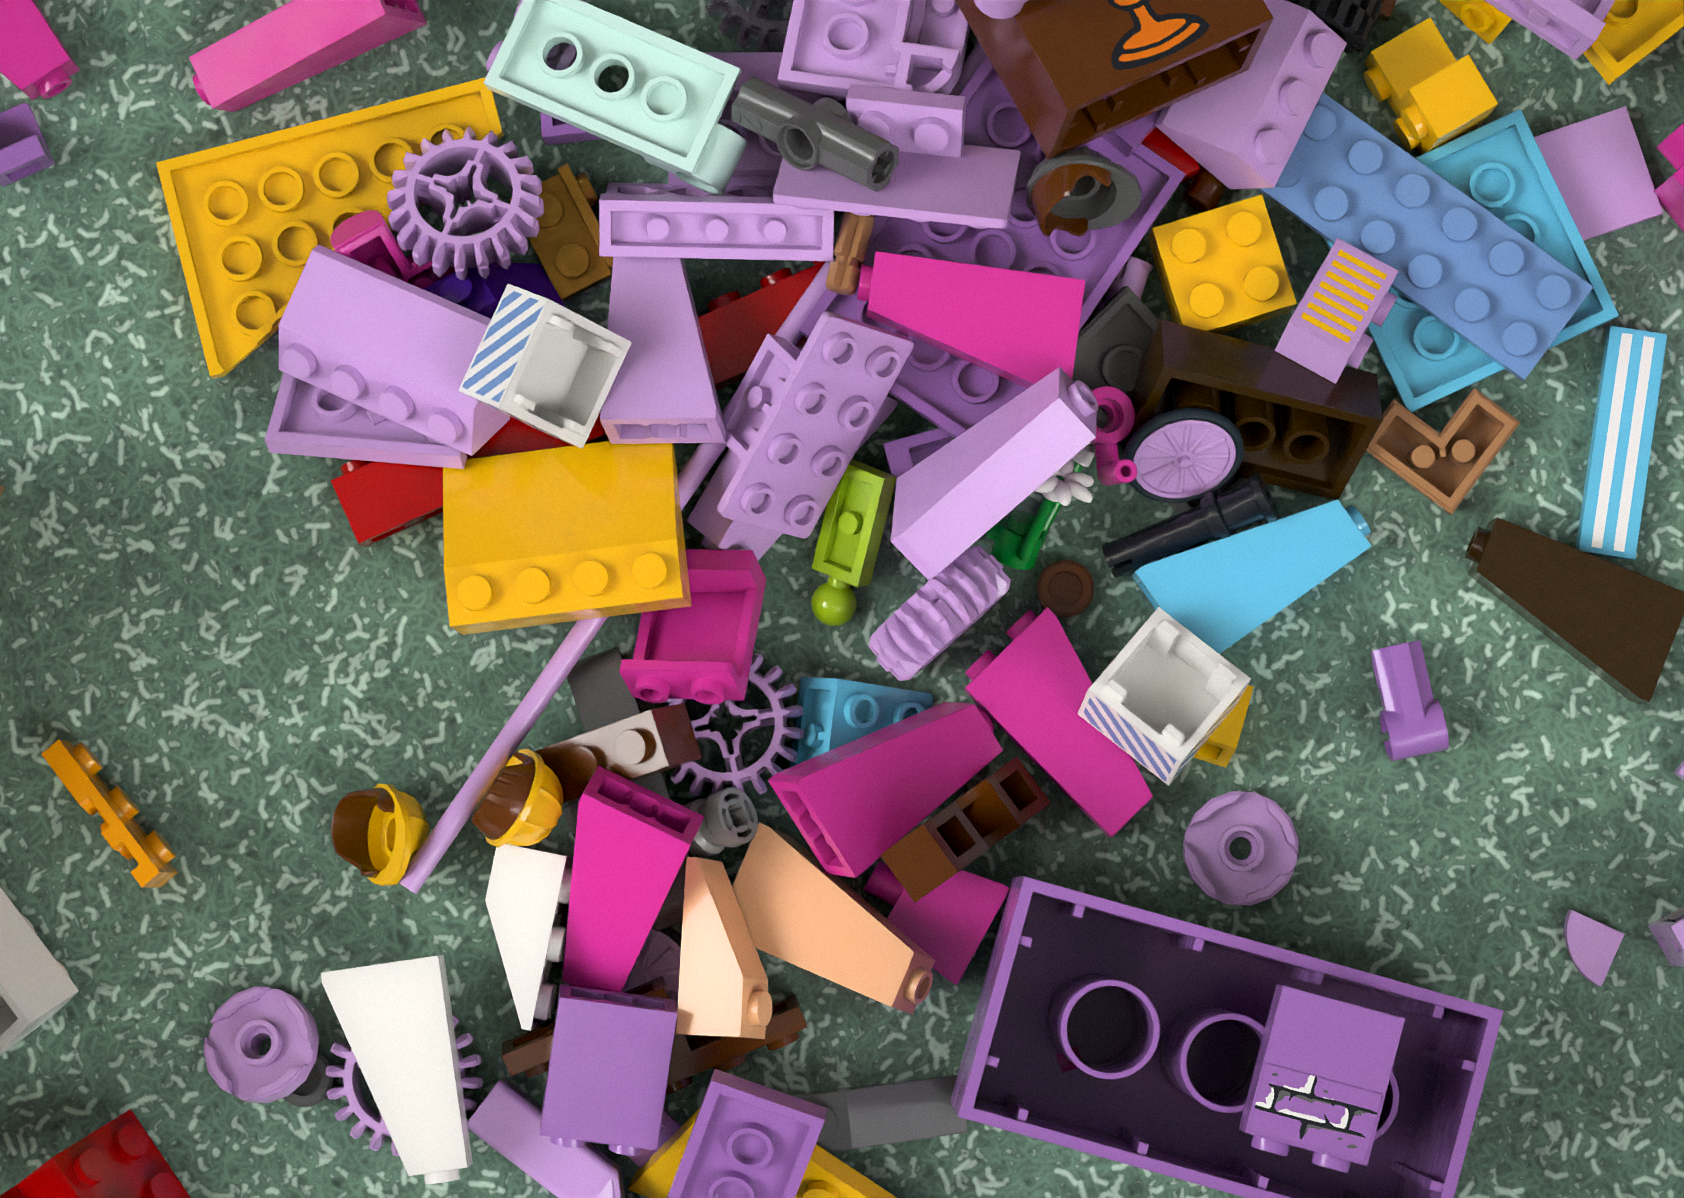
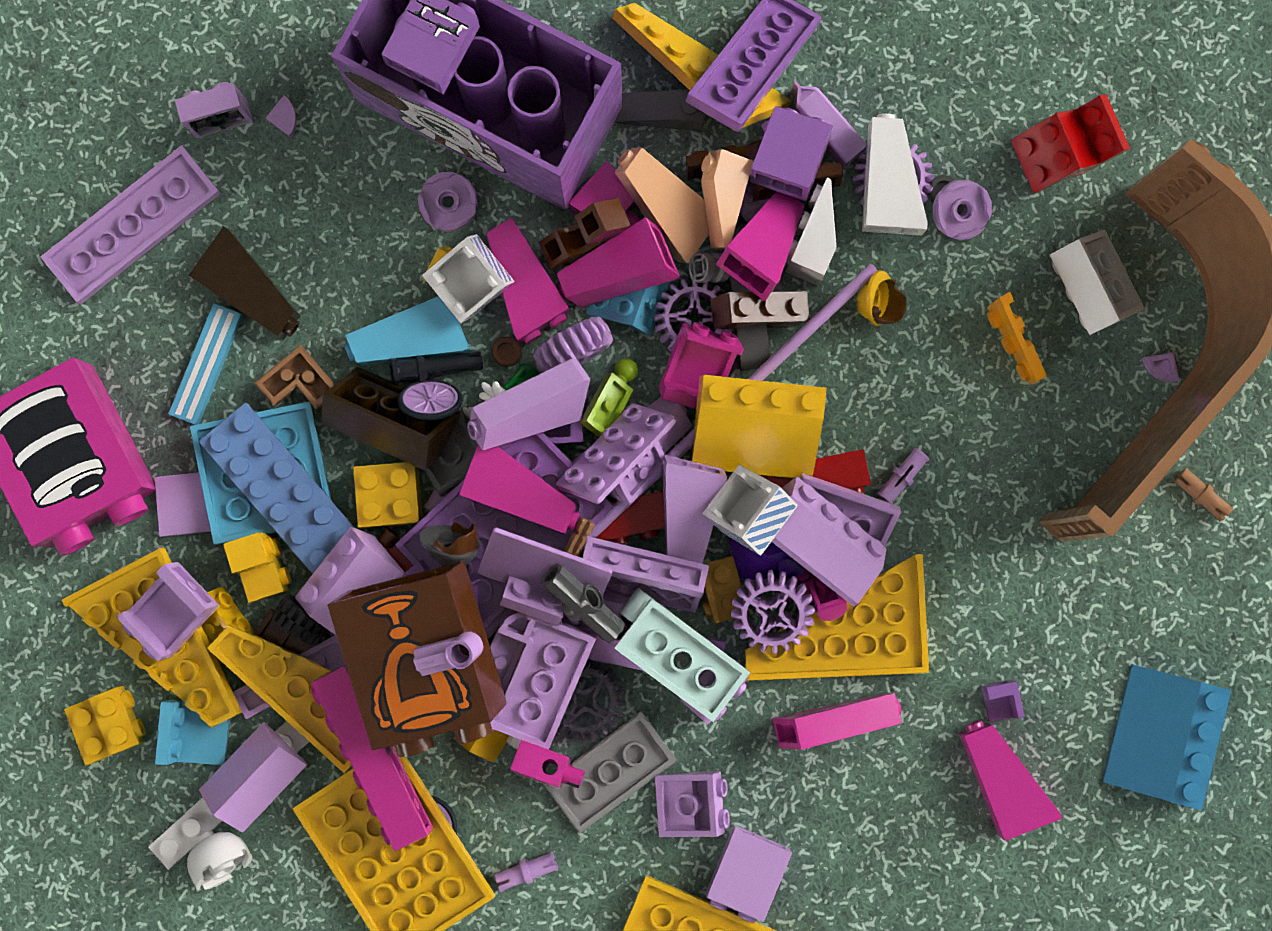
camera: 170 degrees left, 0 degrees up
(291, 480) = (916, 460): none -> lavender pin
(521, 802) = (808, 292): piece -> none
(1119, 425) = (460, 421): dark pink plate -> none
(1336, 311) = (332, 456): lavender brick -> none
(1409, 711) = (346, 254): medium lavender piece -> none

